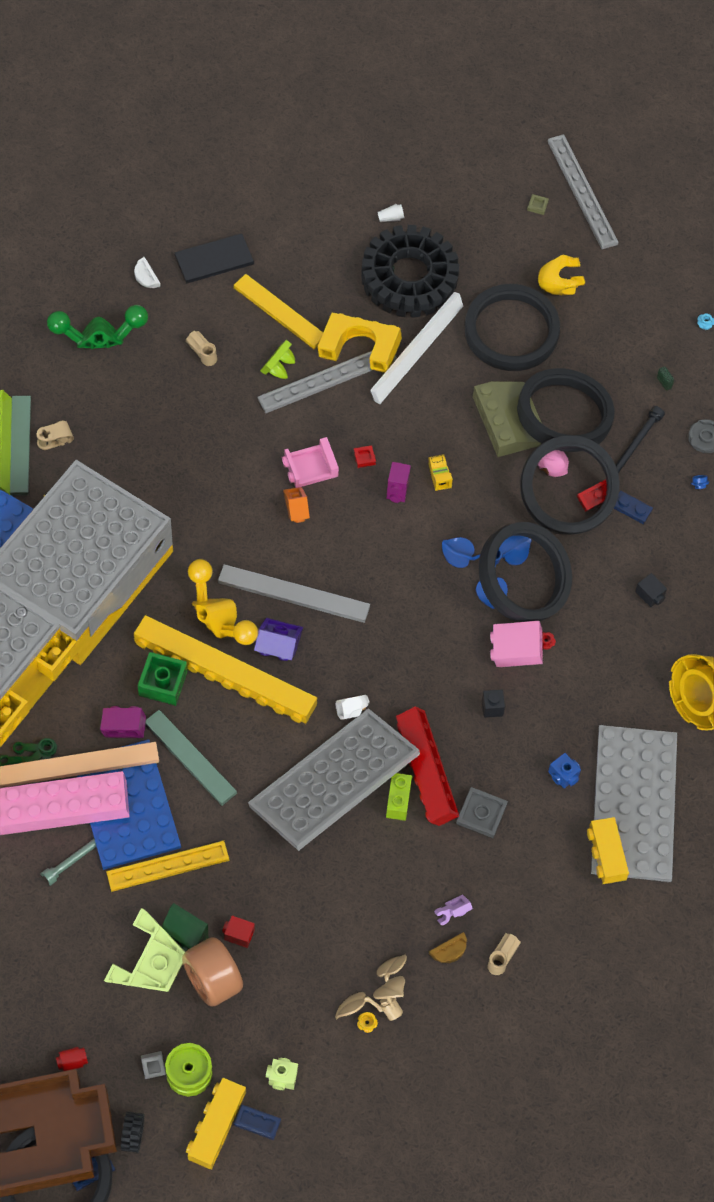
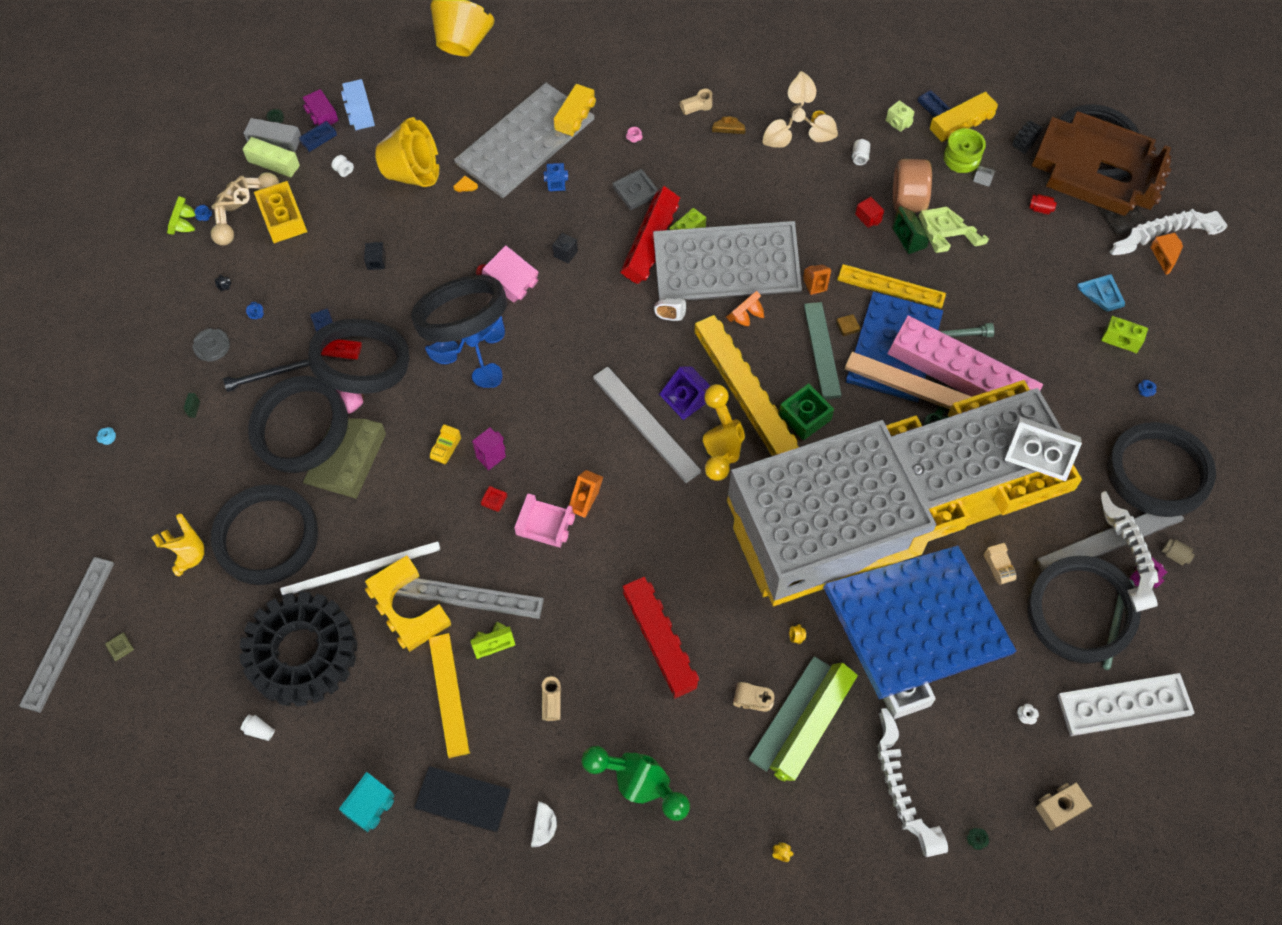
camera: 140 degrees left, 0 degrees up
(123, 722) = (860, 398): magenta brick -> none
(155, 434) = (660, 638): none -> red brick
(182, 797) = (848, 325): none -> pearl gold tile
(241, 818) = (817, 278): none -> orange slope
(272, 212) = (367, 802): none -> teal slope
(288, 744) = (752, 304): none -> orange tile
(295, 1003) = (861, 152): none -> white brick
(455, 907) = (704, 144): lavender plate -> none
(539, 876) = (634, 131): none -> bright pink plate
(642, 715) = (465, 184): none -> light orange tile

